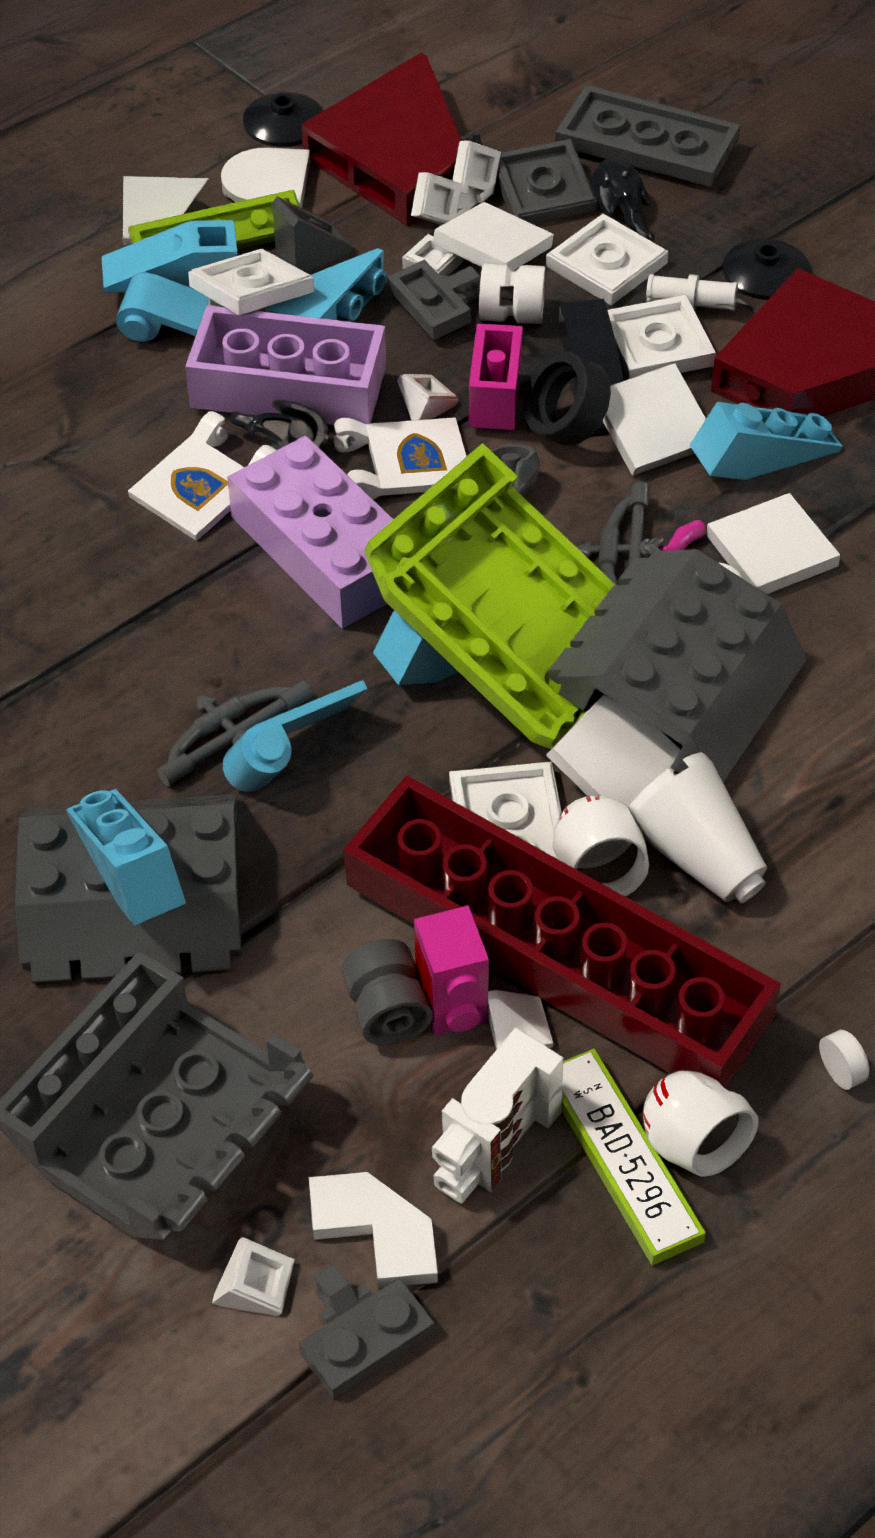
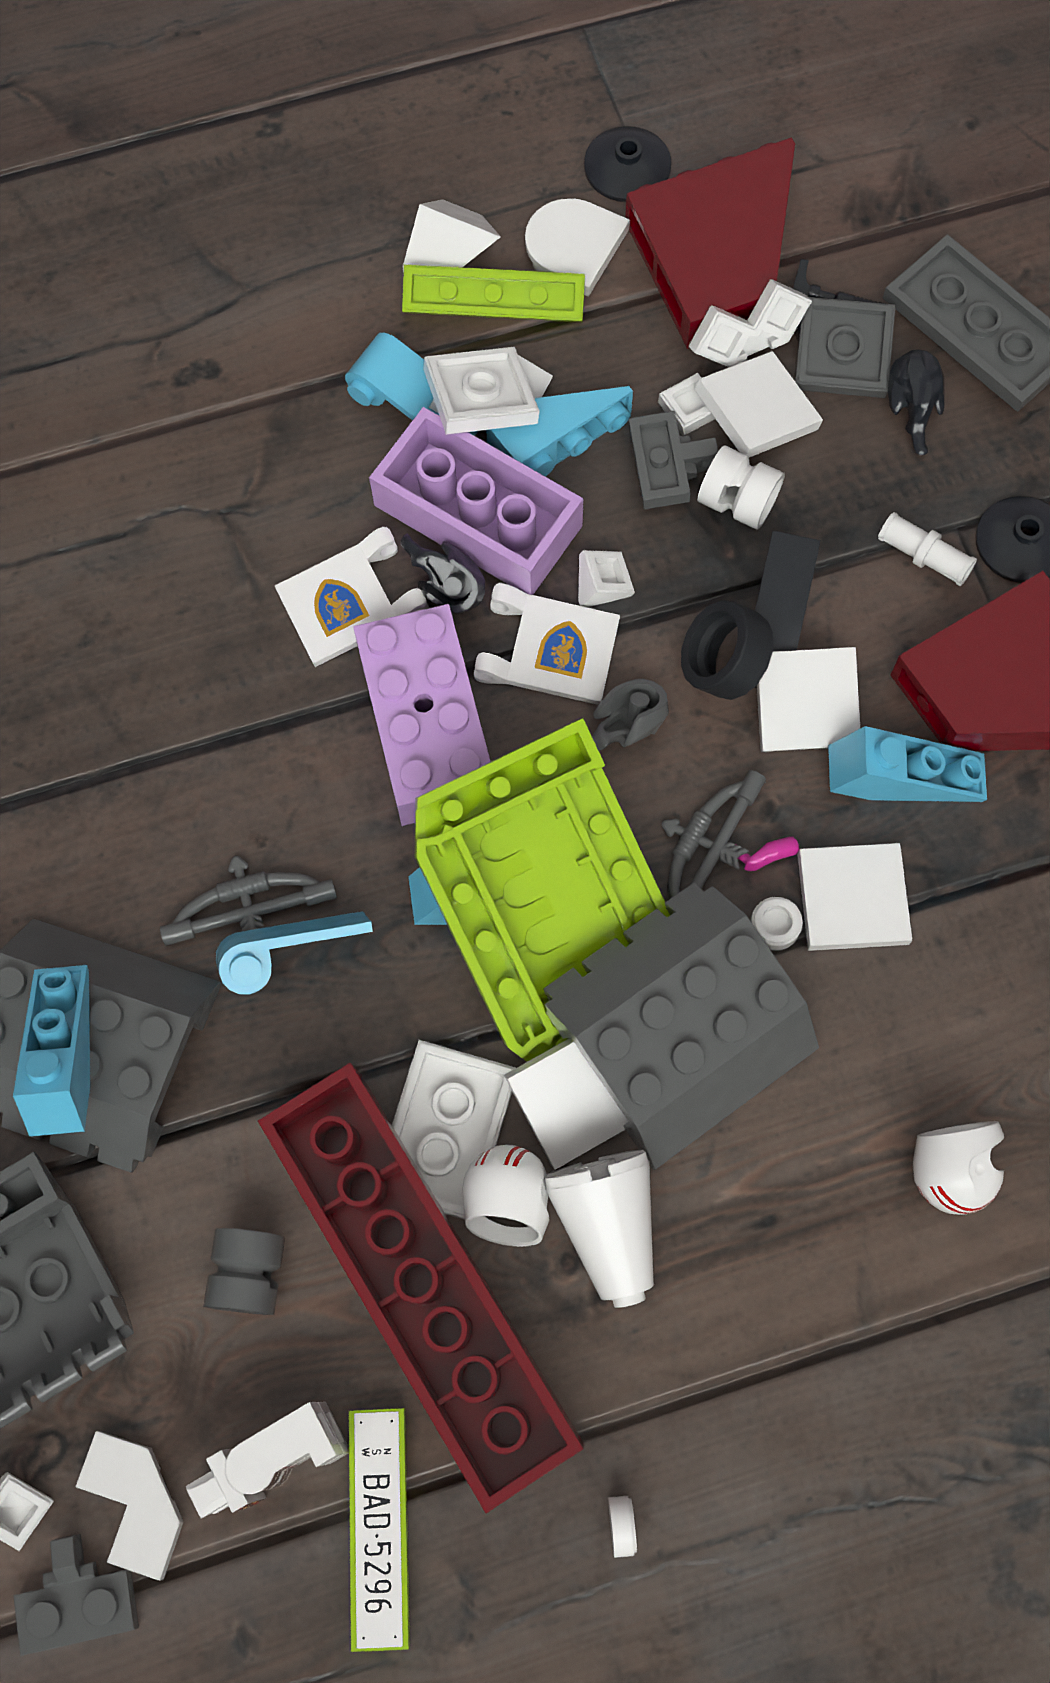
camera: 25 degrees right, 20 degrees up
(170, 253) = (428, 321): medium azure slope -> none
(305, 237) = (578, 336): dark grey slope -> none
(452, 969) = (301, 1287): dark pink brick -> none
(495, 376) = (672, 591): dark pink brick -> none
(517, 1010) = (352, 1346): white slope -> none
(607, 259) = (865, 468): white tile -> none
(660, 335) = (863, 596): white plate -> none
(683, 1113) = (444, 1538): white helmet -> none

